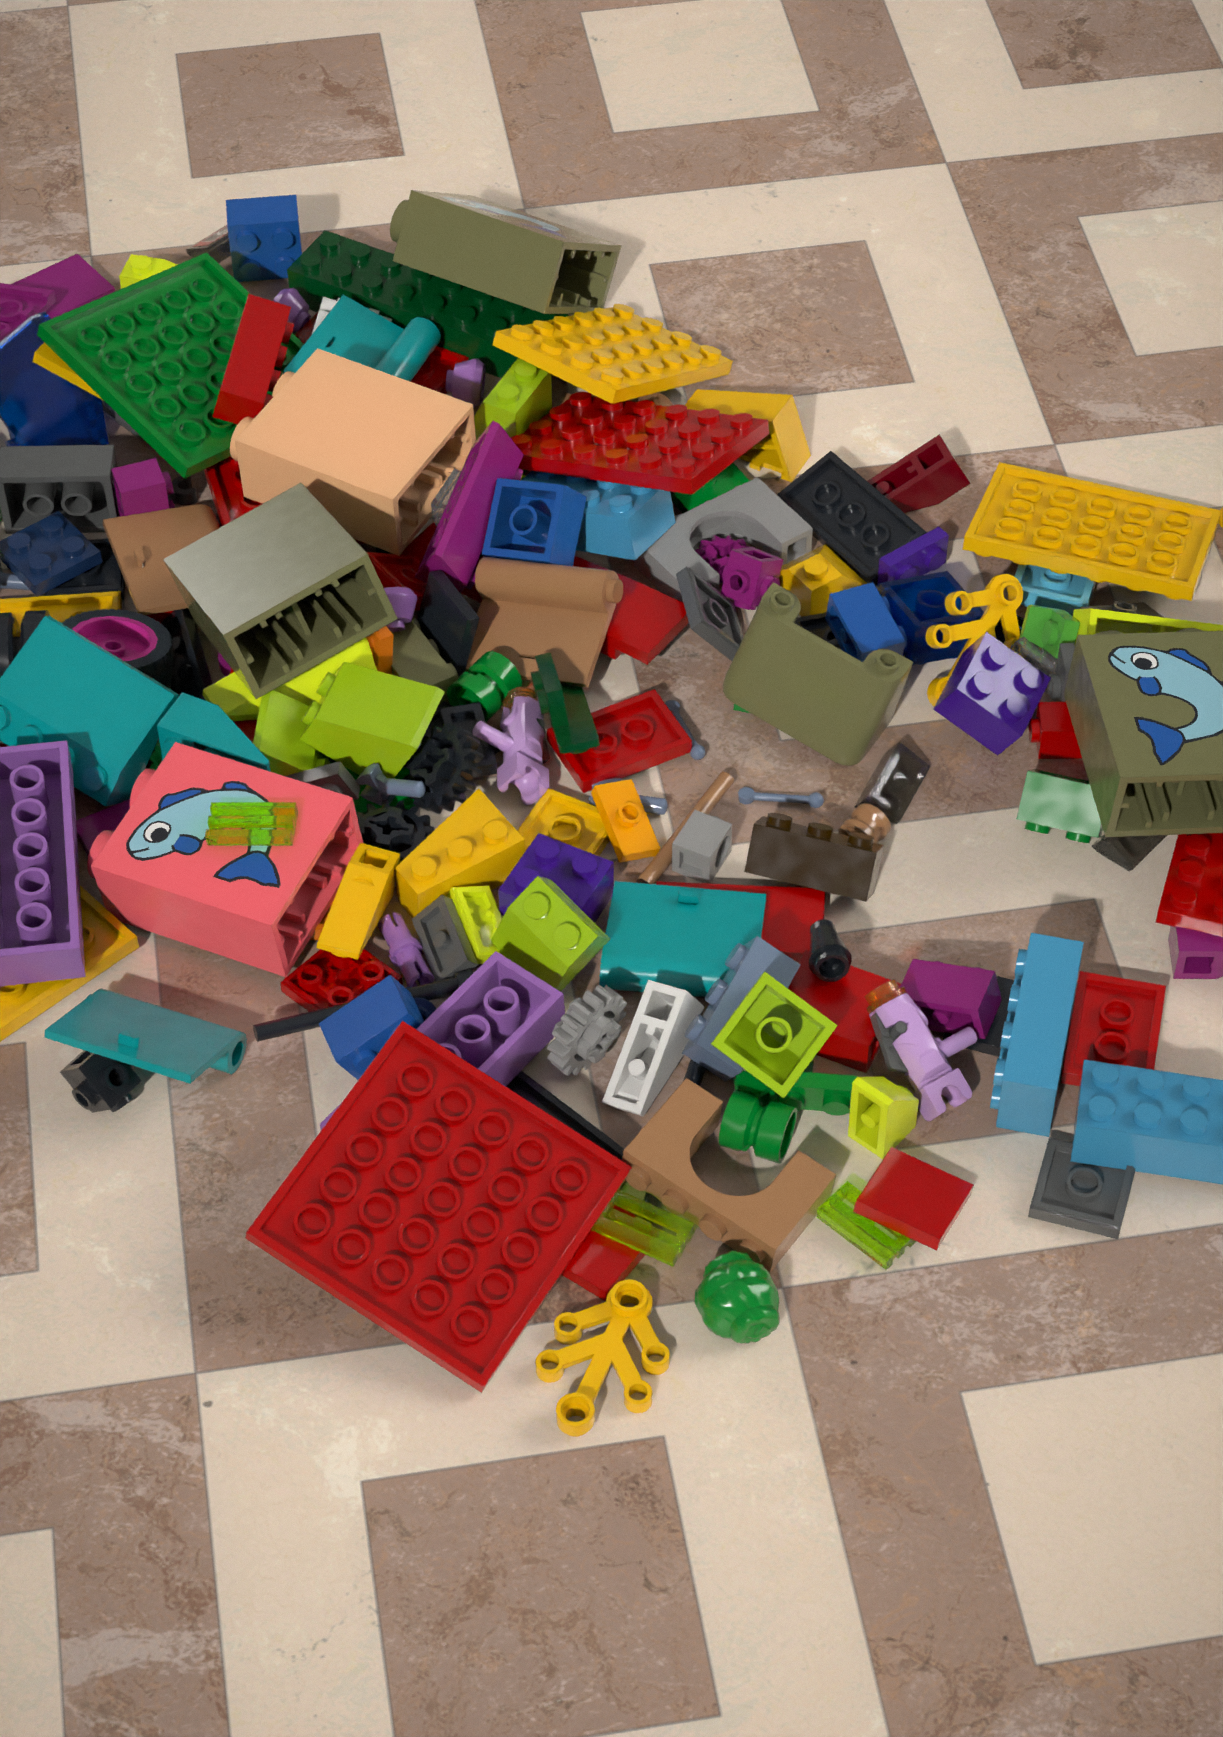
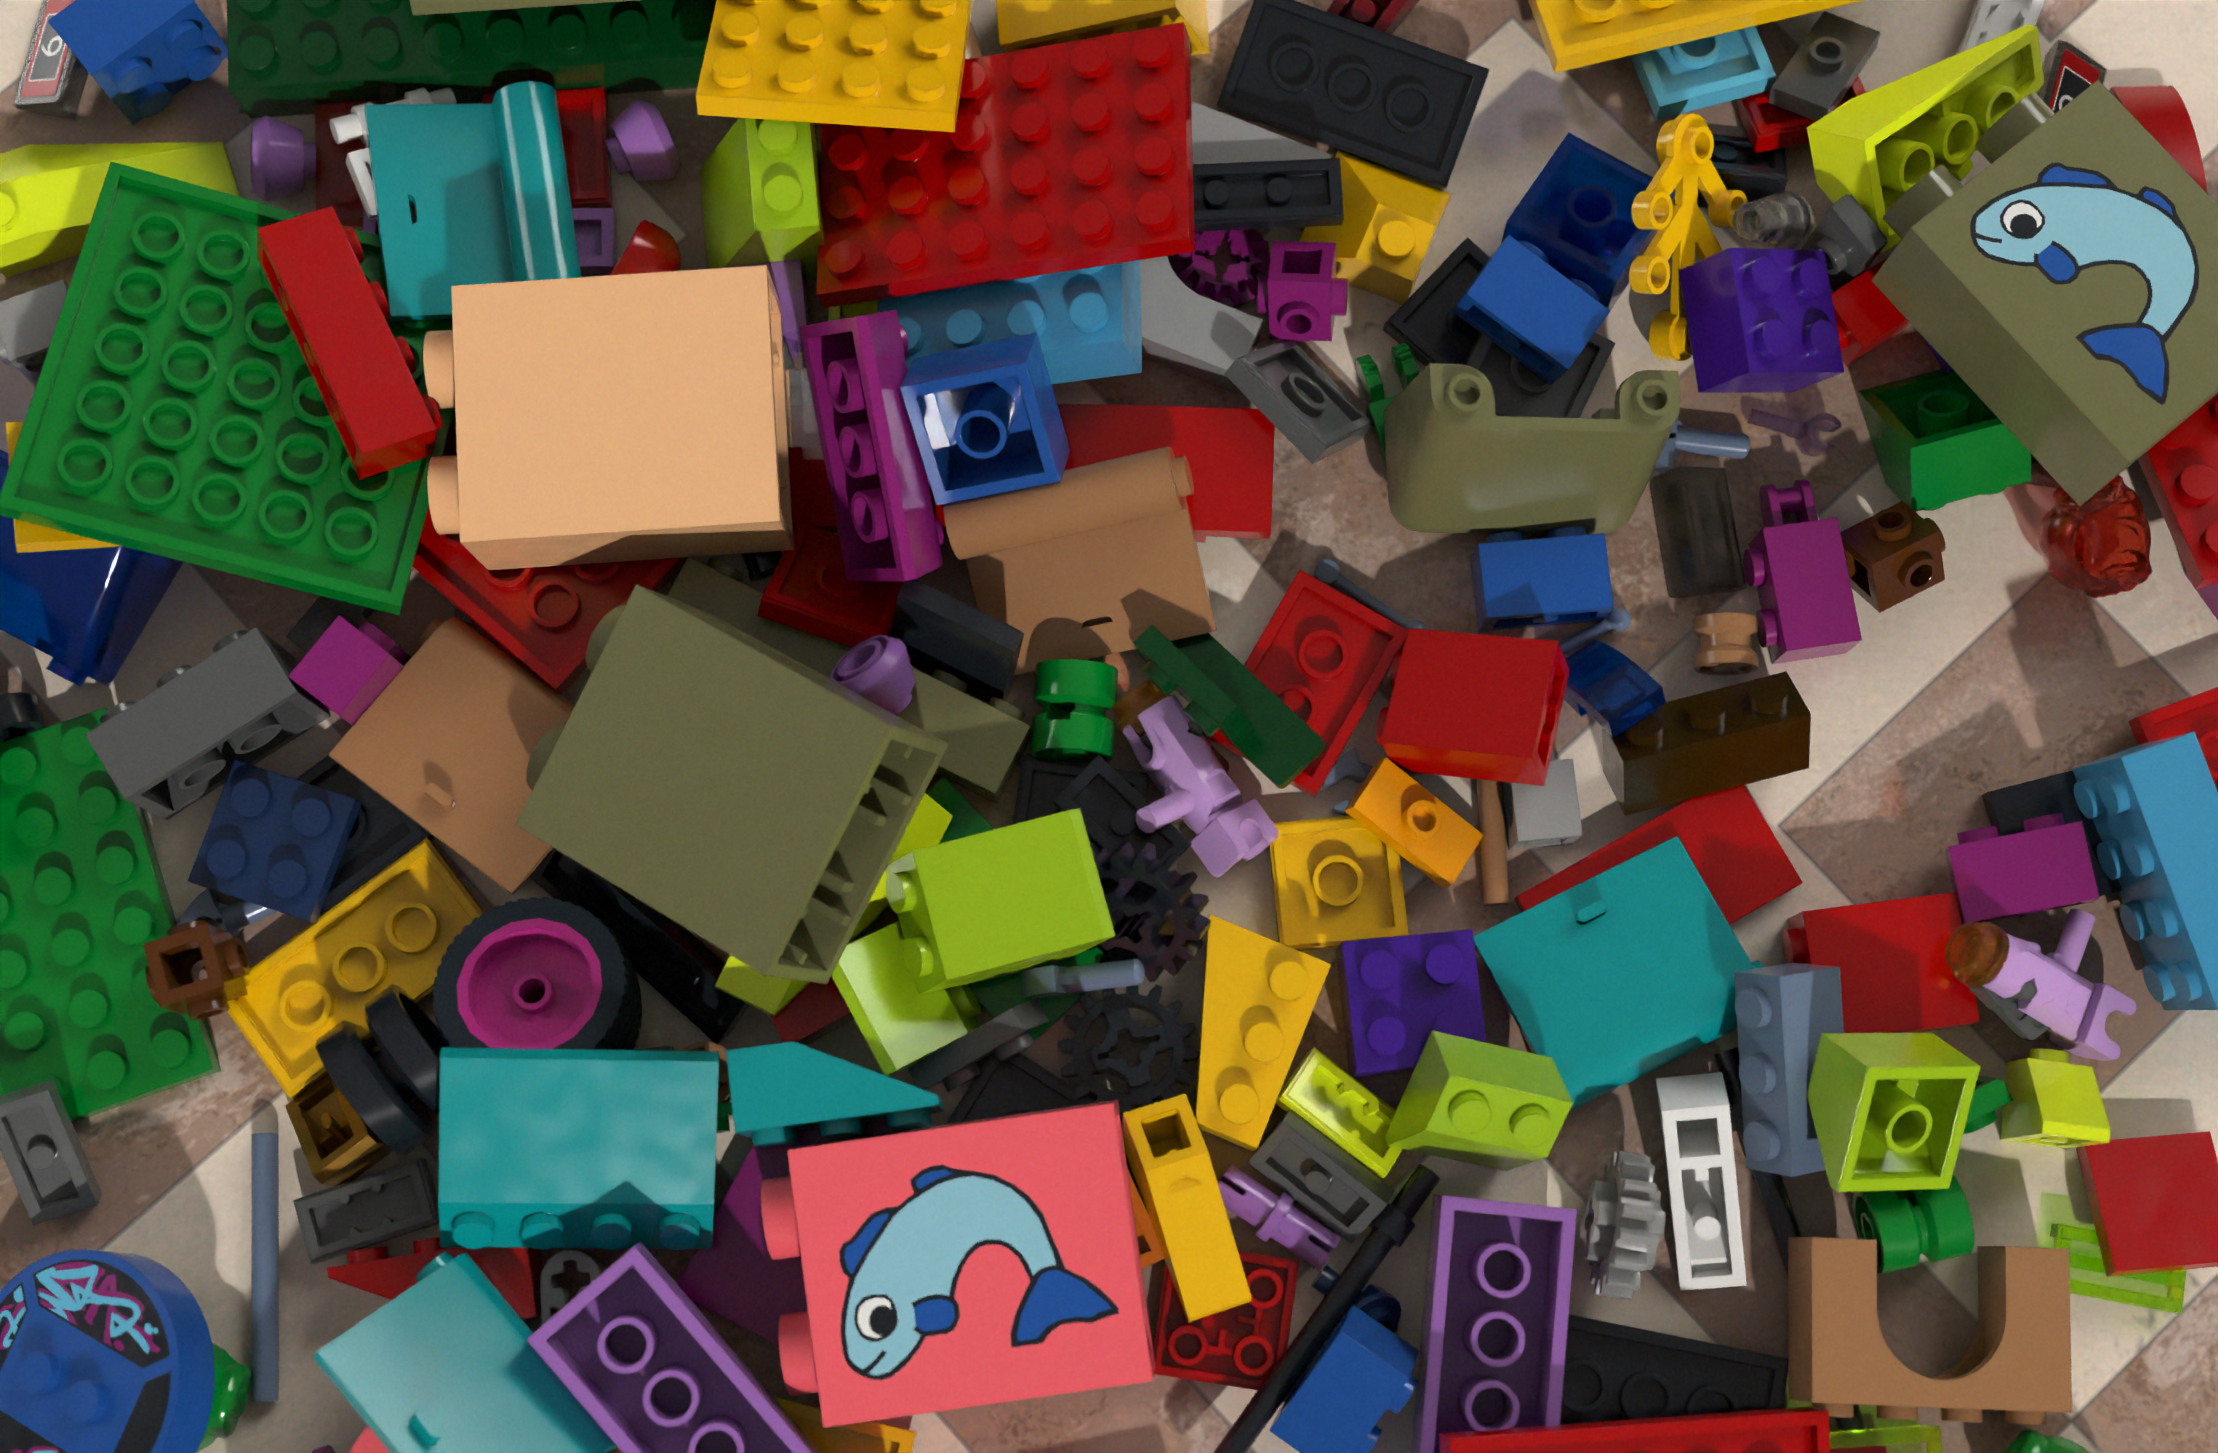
camera: 35 degrees left, 30 degrees up
(251, 817) = (959, 1266): clear neon green tile -> none
(697, 775) = (1474, 706): none -> red brick
(744, 518) = (1267, 194): none -> black tile
(776, 804) = (1610, 687): none -> clear blue slope
(781, 756) = (1541, 580): none -> blue brick
(828, 954) = (1848, 913): black cone -> none
(911, 737) = (1701, 442): none -> sand blue bar
(915, 558) = (1497, 98): dark purple plate -> none
(928, 825) = (1800, 579): none -> magenta brick
(977, 822) = (1893, 556): none -> reddish brown brick
(989, 768) = (1801, 431): none -> clear purple hand
(1049, 628) = (1788, 168): bright green bracket -> none
(1116, 876) = (2097, 544): none -> clear red hair

